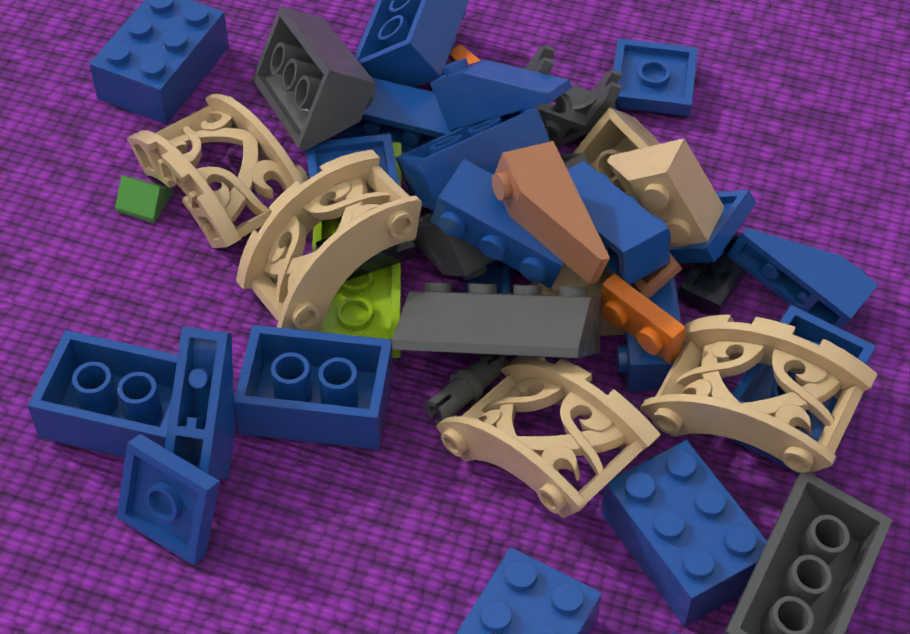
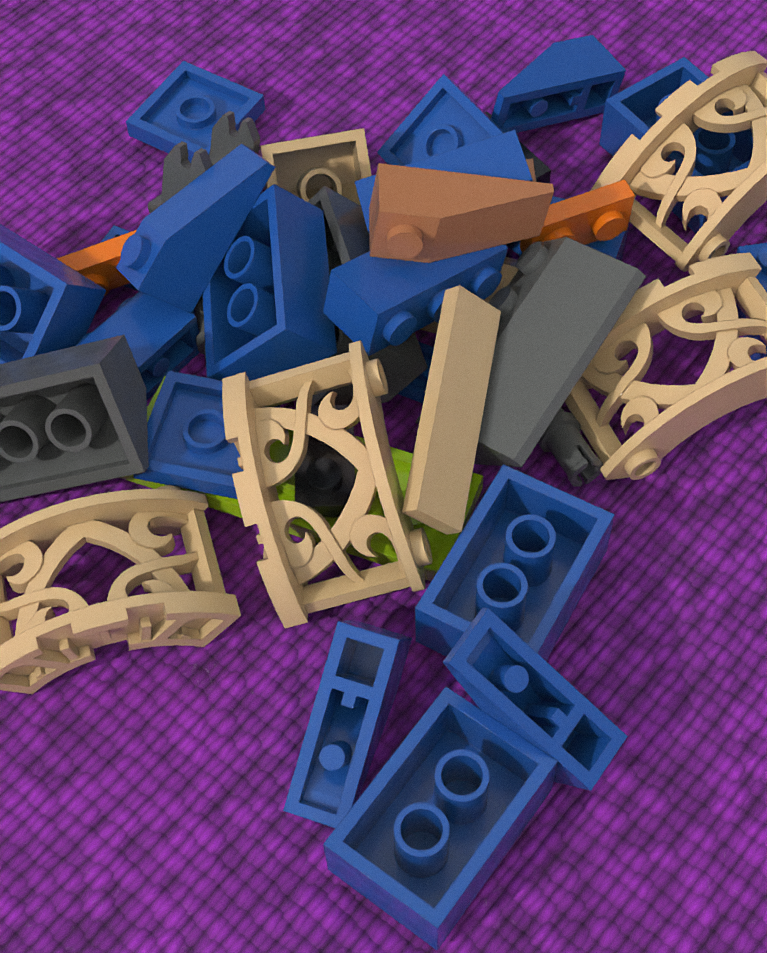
camera: 65 degrees left, 5 degrees up
(141, 198) = (81, 704): bright green slope -> none
(167, 499) = (636, 792): blue plate -> none
(207, 309) = (346, 720): none -> blue slope
(407, 283) = (452, 412): none -> tan tile
(671, 187) = (411, 127): tan slope -> none

